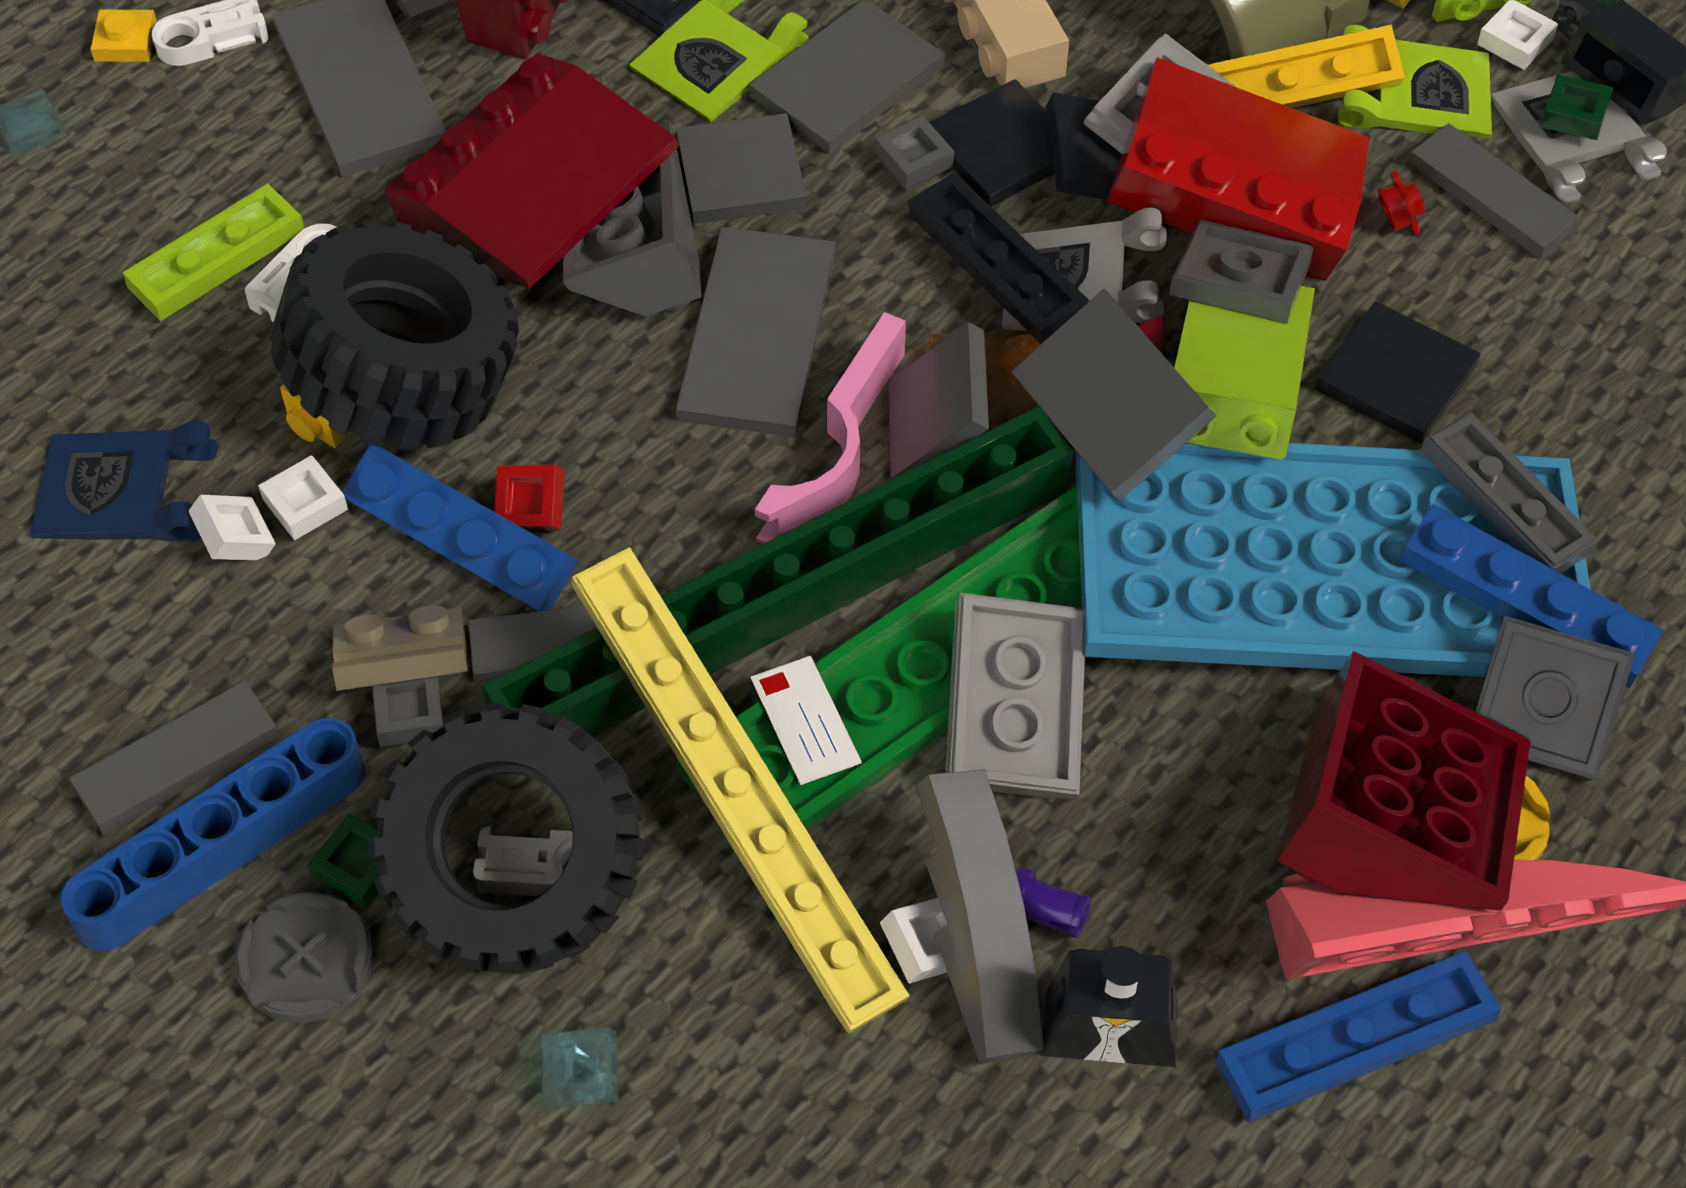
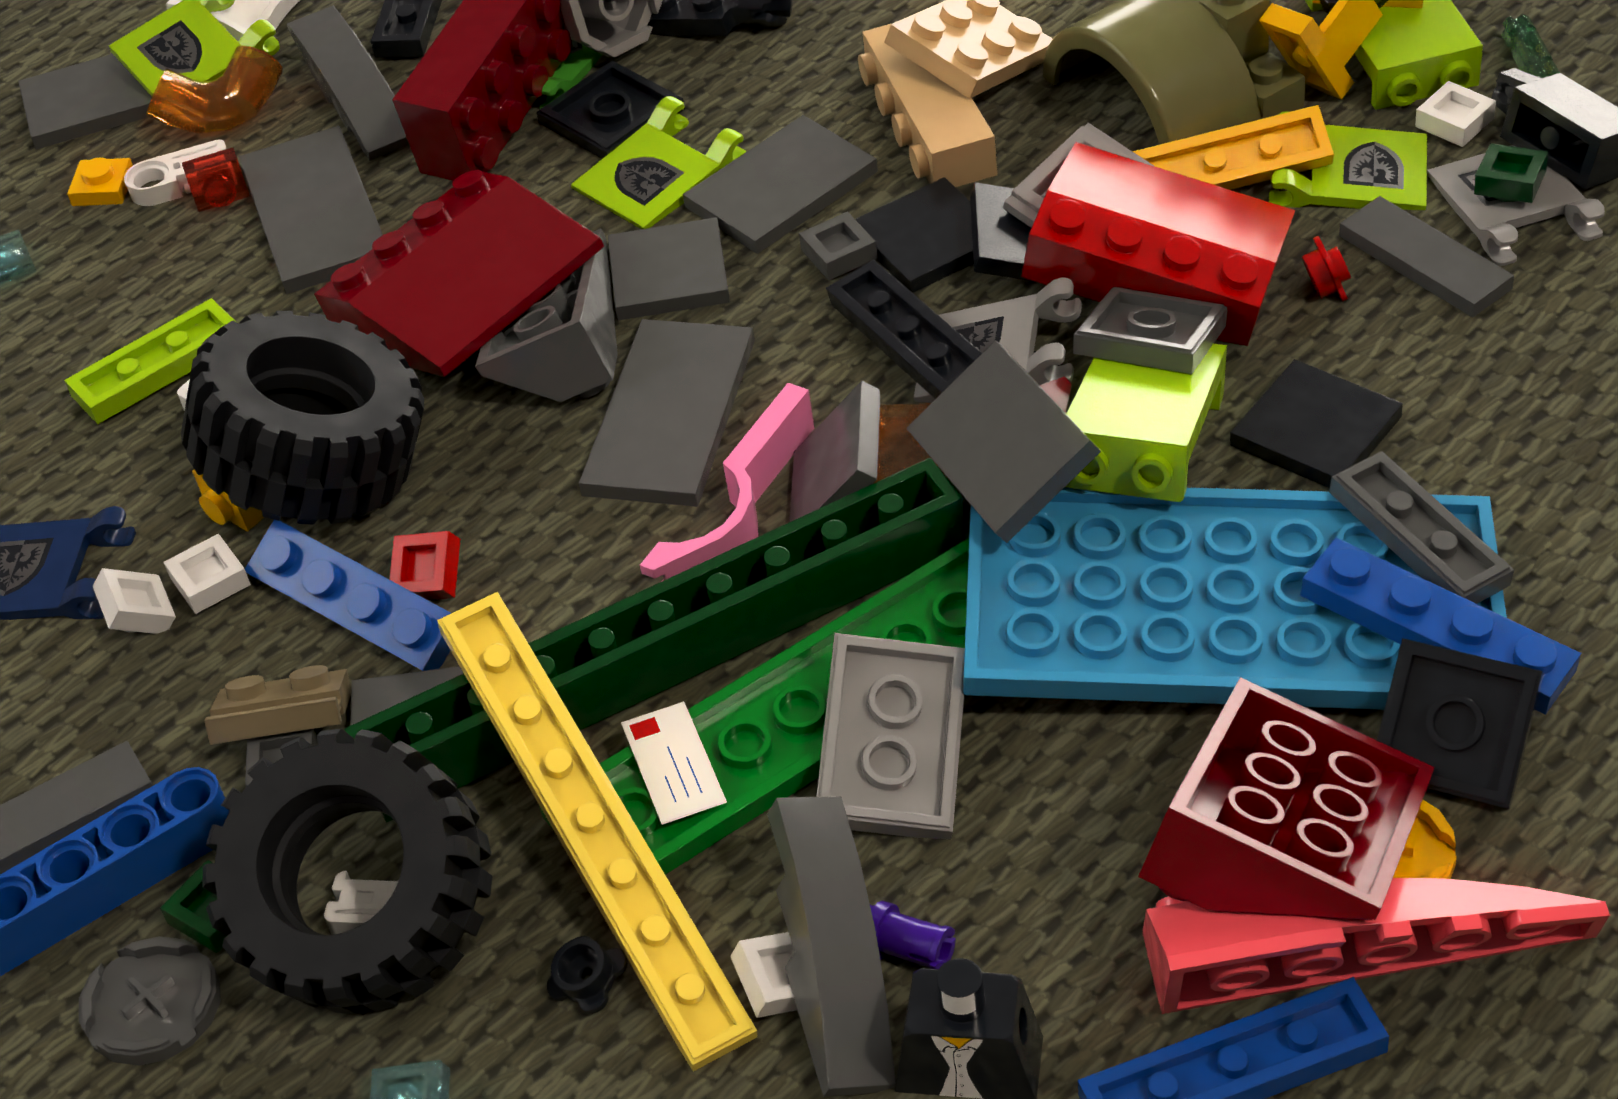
camera: 10 degrees right, 10 degrees down
(253, 43) = (215, 179): none -> clear red plate
(725, 922) = (573, 961): none -> black plate

